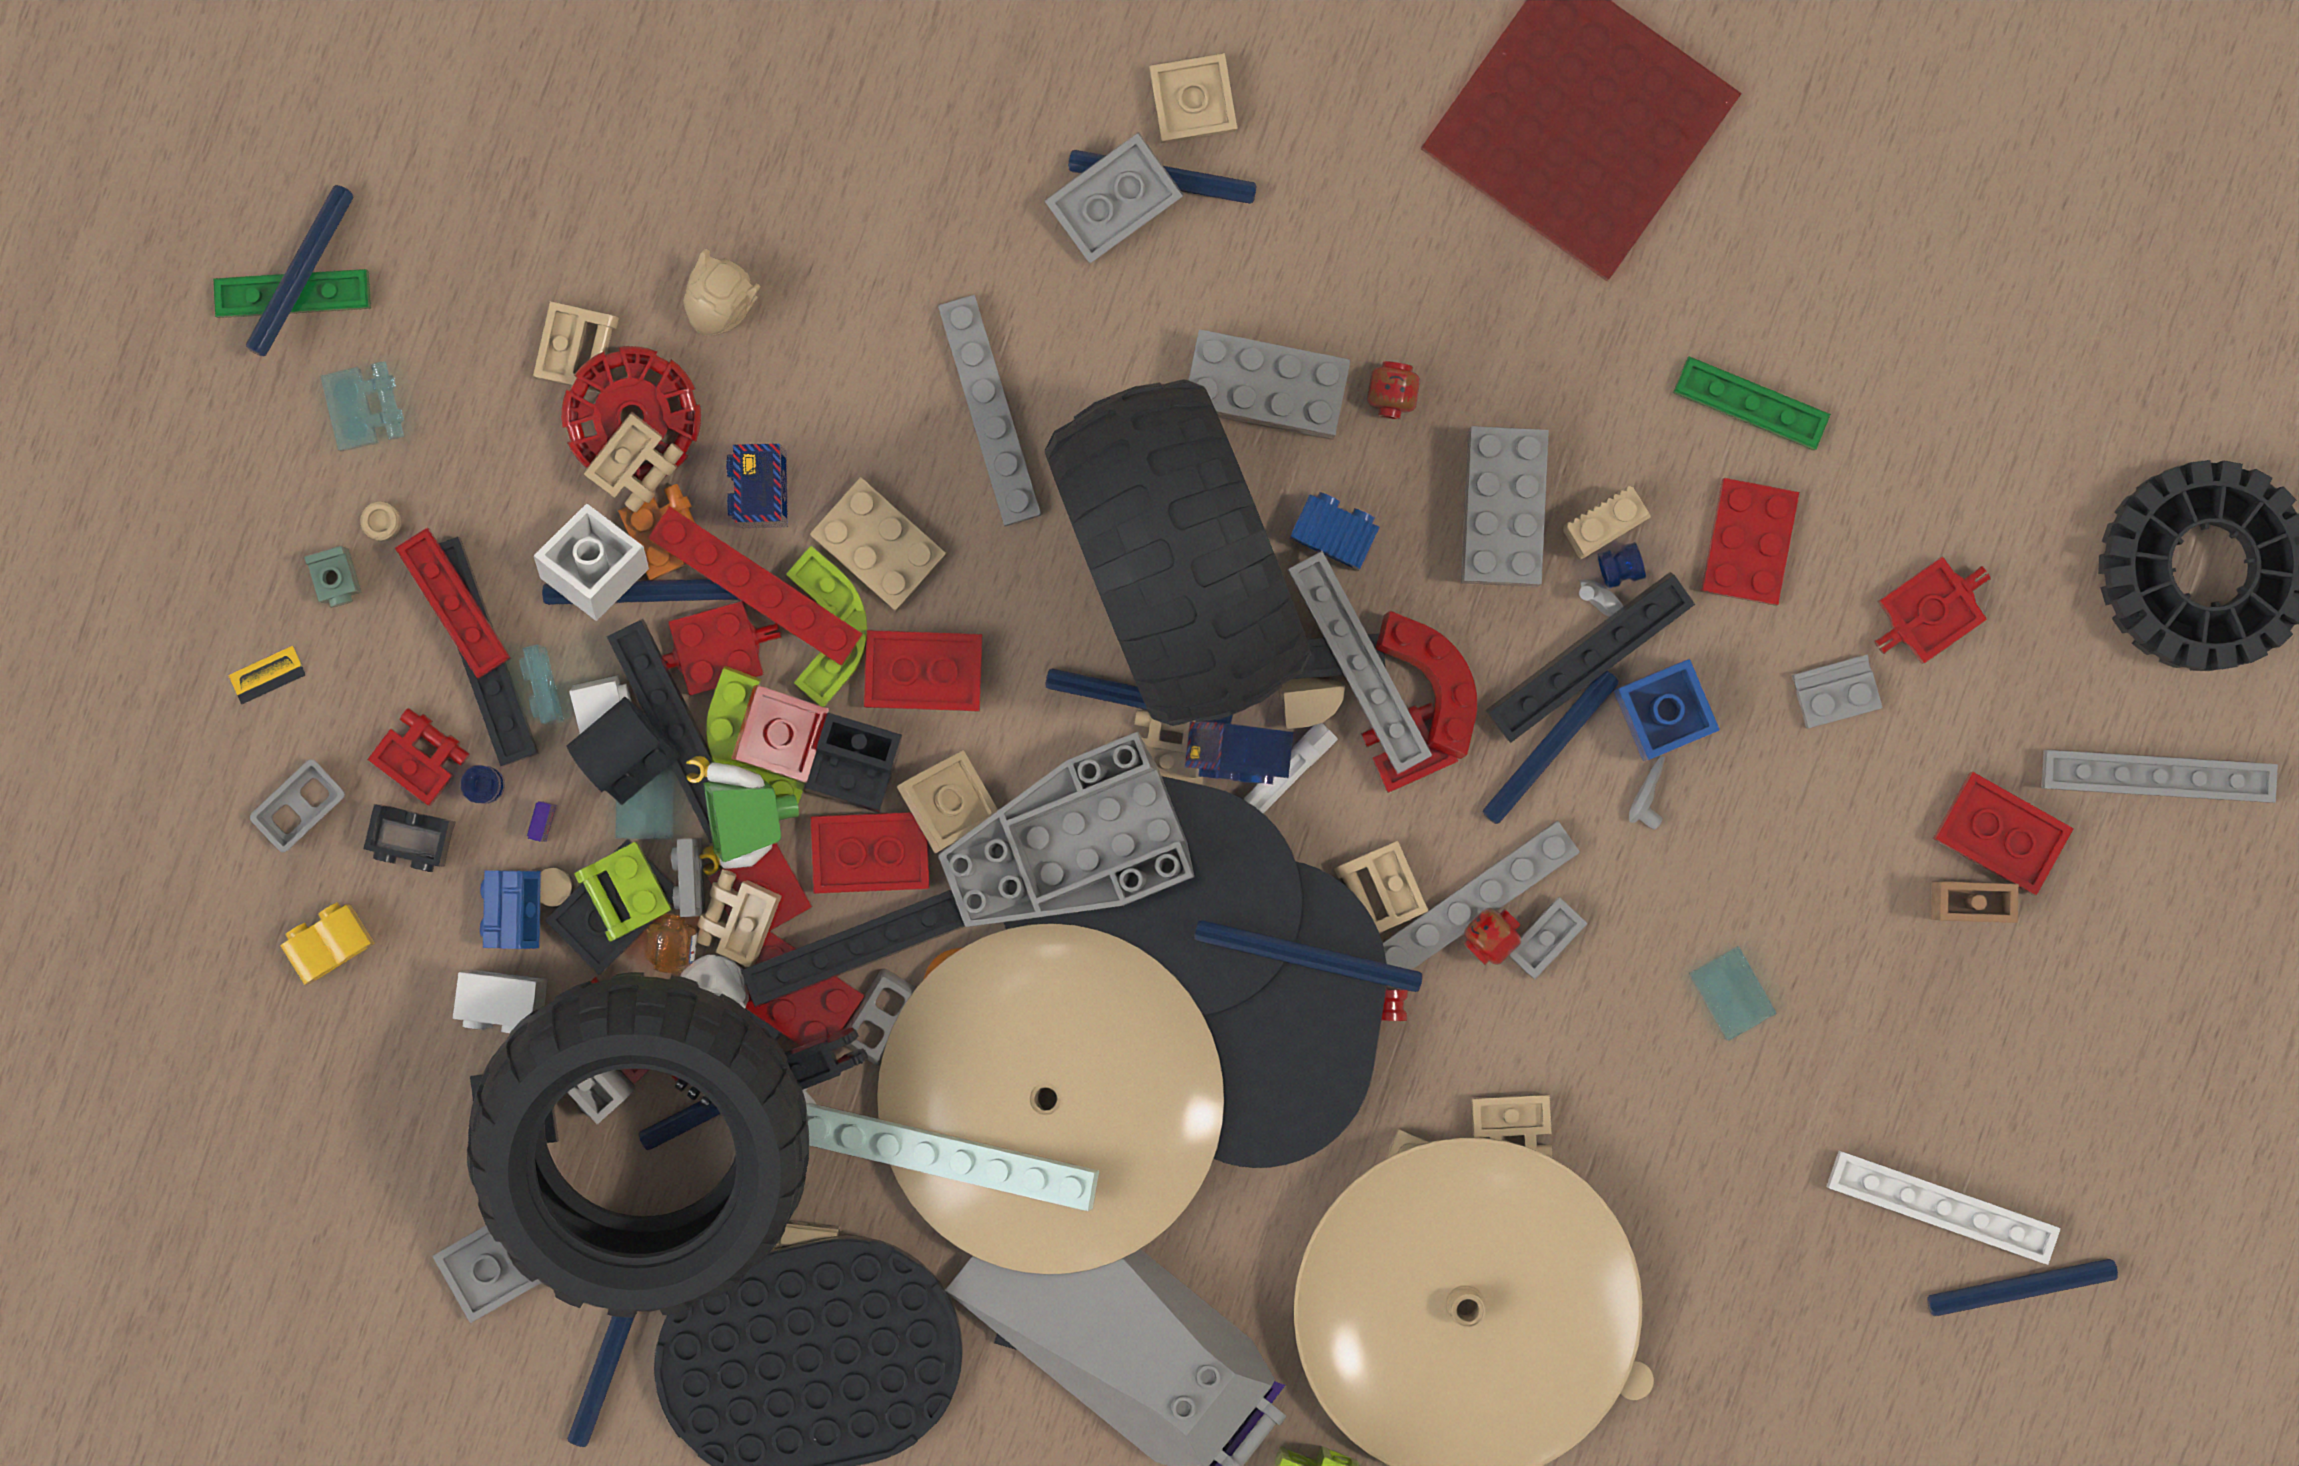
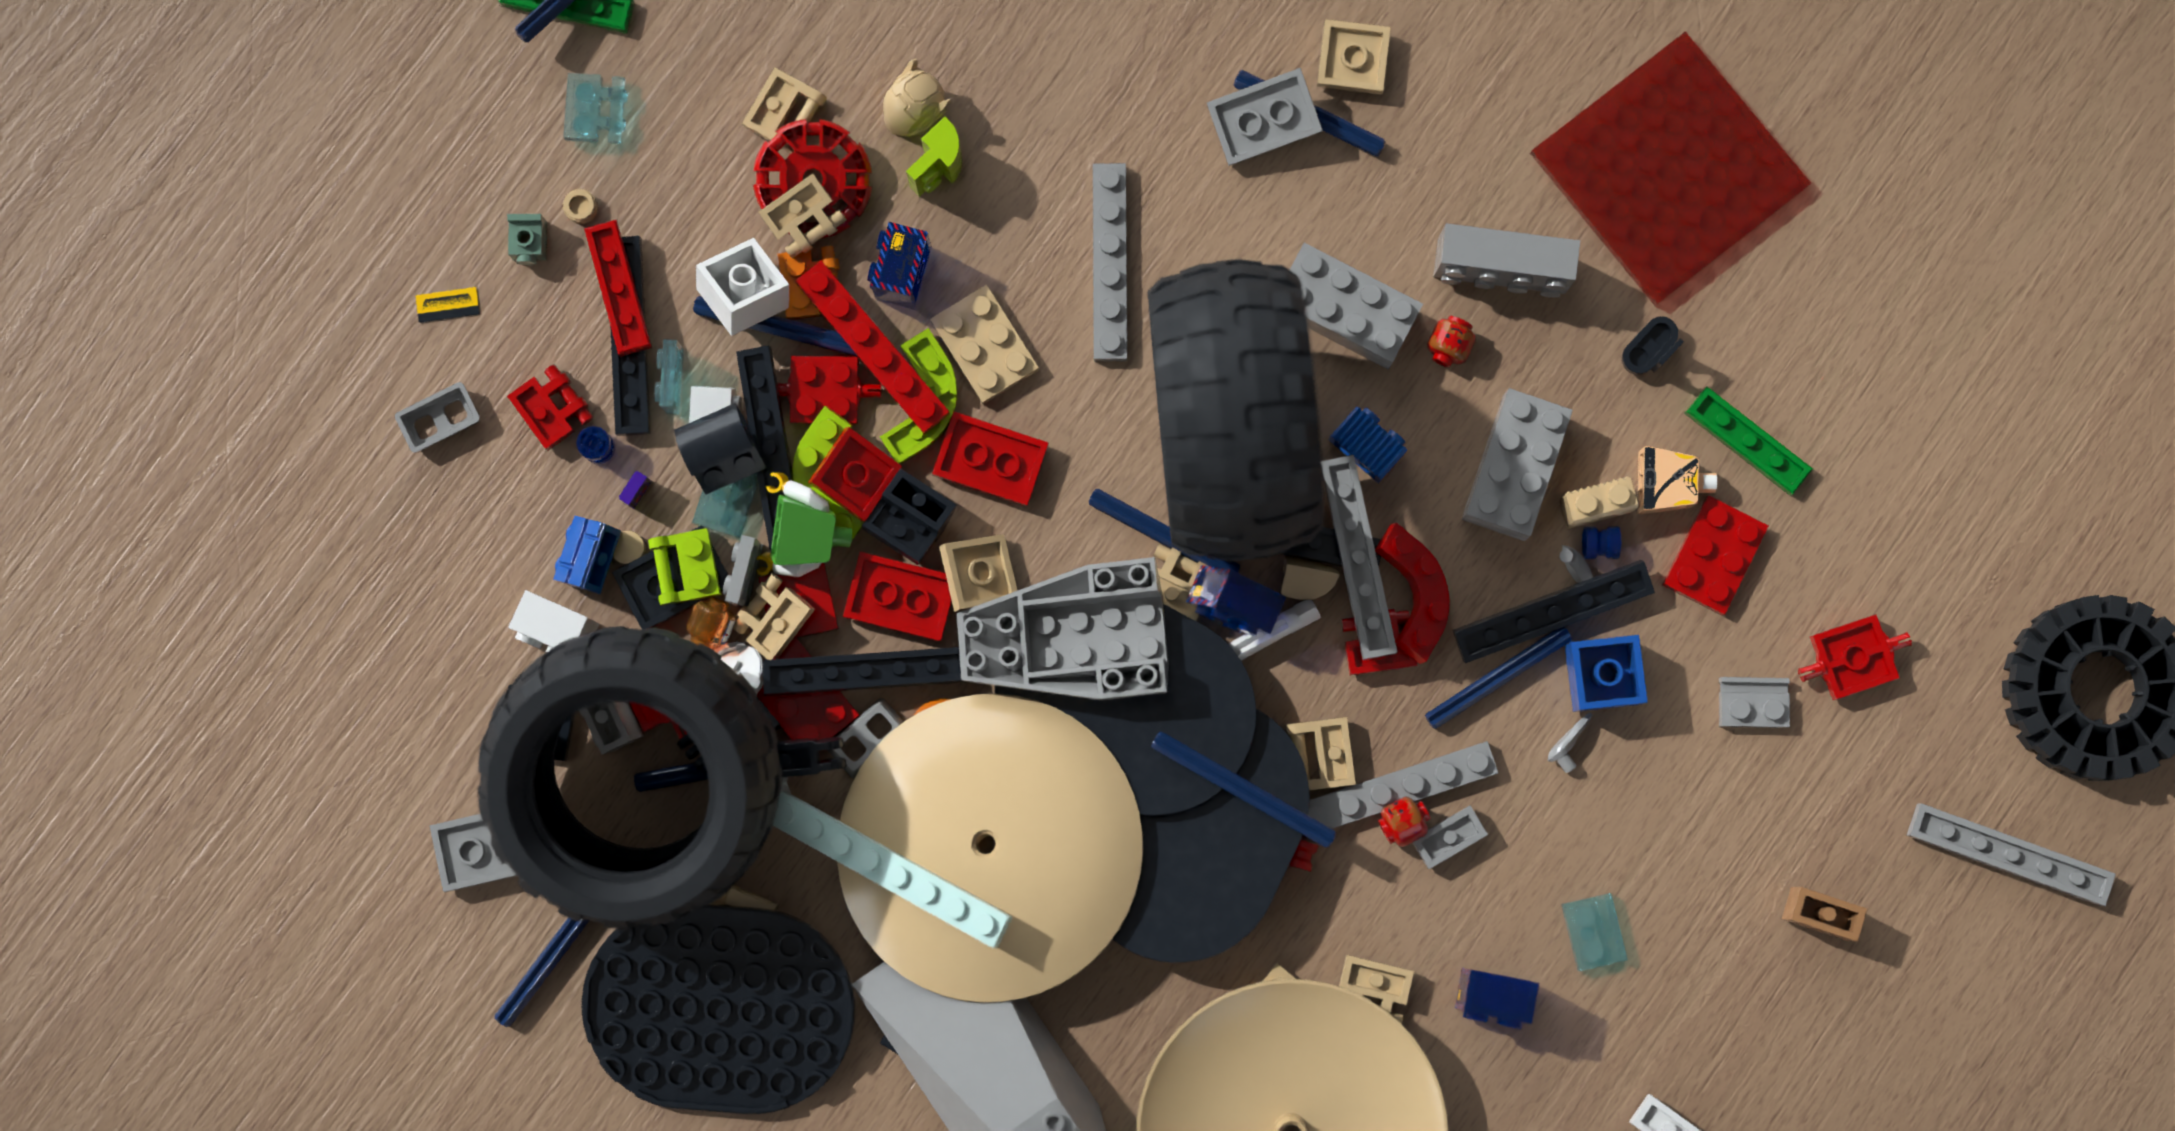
camera: 20 degrees right, 5 degrees down
(326, 943) = (425, 538): yellow brick -> none
(408, 836) = (521, 469): black window -> none
(768, 348) = (940, 157): none -> lime brick
(1428, 282) = (1506, 260): none -> light grey brick
(1616, 330) = (1651, 346): none -> black bracket
(1646, 1096) = (1496, 996): none -> clear blue brick
(1678, 474) = (1670, 480): none -> light nougat torso
(2003, 833) = (1864, 863): red plate -> none

